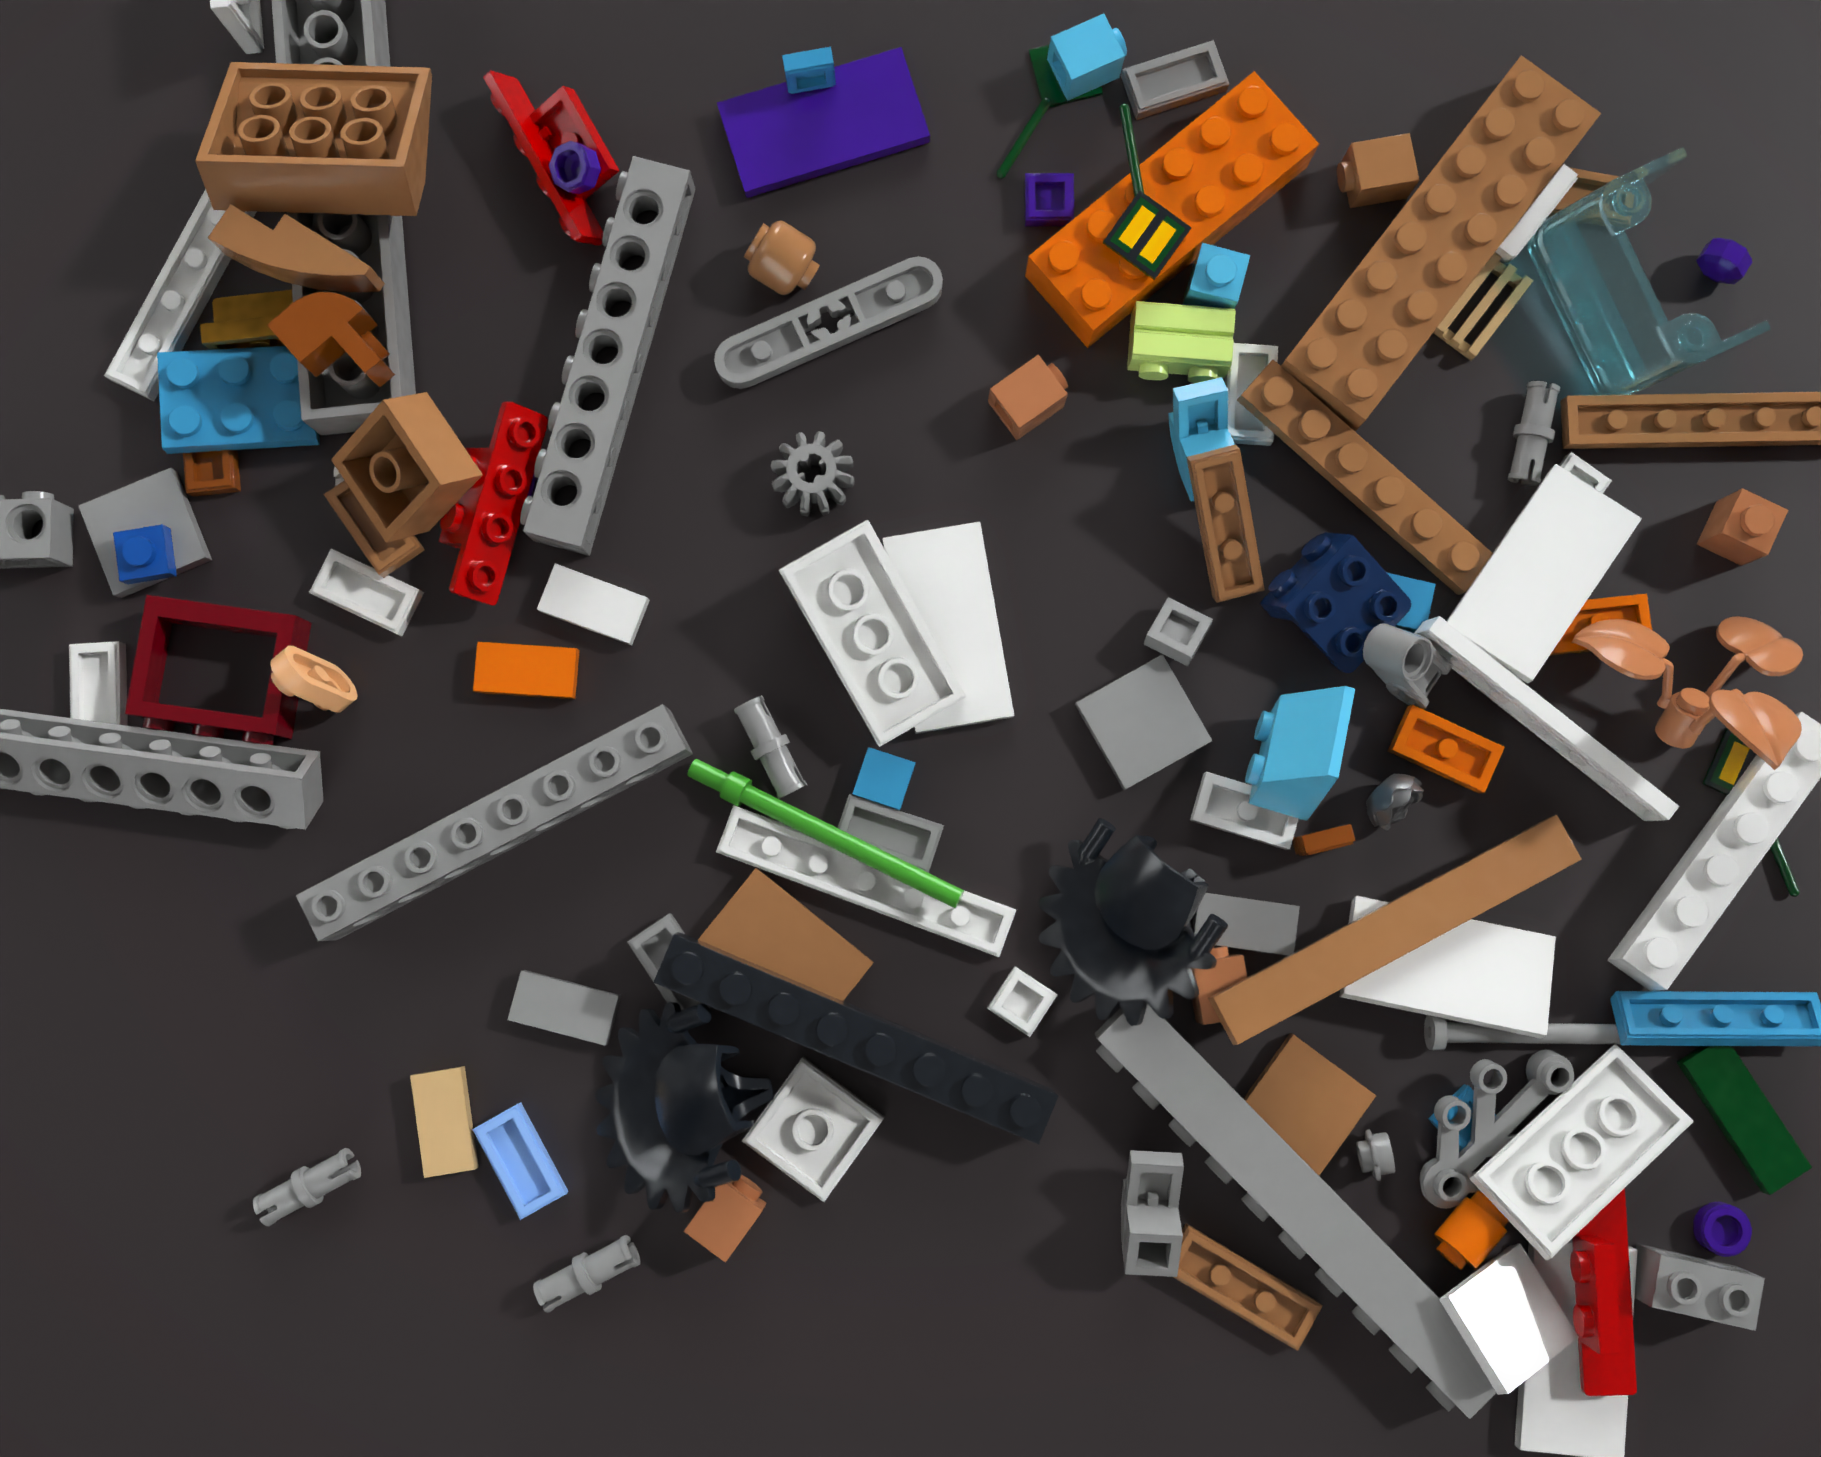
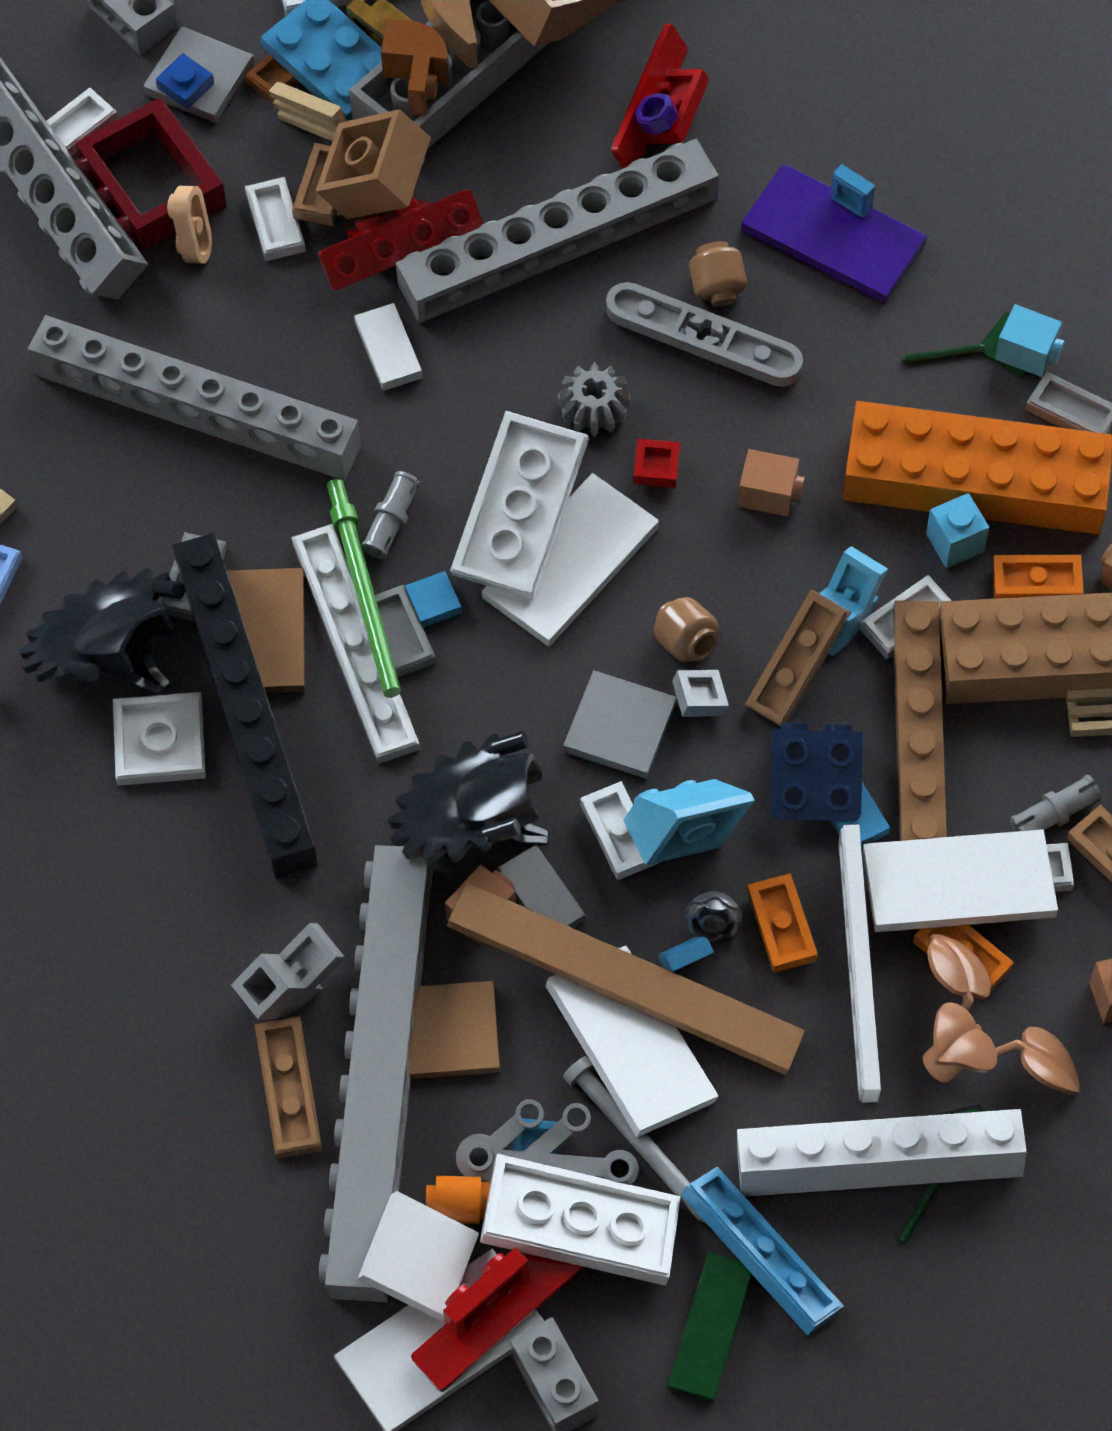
camera: 50 degrees right, 20 degrees down
(283, 471) = (306, 110): none -> tan tile
(526, 670) = (309, 342): orange tile -> none
(564, 1007) = (108, 531): light grey tile -> none
(727, 1218) = (55, 725): nougat brick -> none
(921, 474) = (656, 463): none -> red plate
(1022, 1001) = (360, 798): white tile -> none
(1049, 199) = (917, 393): dark purple tile -> none
(1108, 591) = (686, 629): none -> medium nougat head
(1146, 230) = (940, 450): piece -> none
(1180, 341) = (897, 541): yellowish green brick -> none
(1312, 256) = (1036, 575): none -> orange plate
(1324, 840) = (644, 891): dark orange tile -> none
(1376, 1154) = (458, 1098): light grey plate -> none
(1404, 663) = (813, 851): light grey piece -> none
(1410, 855) = (685, 953): none -> dark azure tile
(1722, 1229) = (615, 1378): dark purple tile -> none

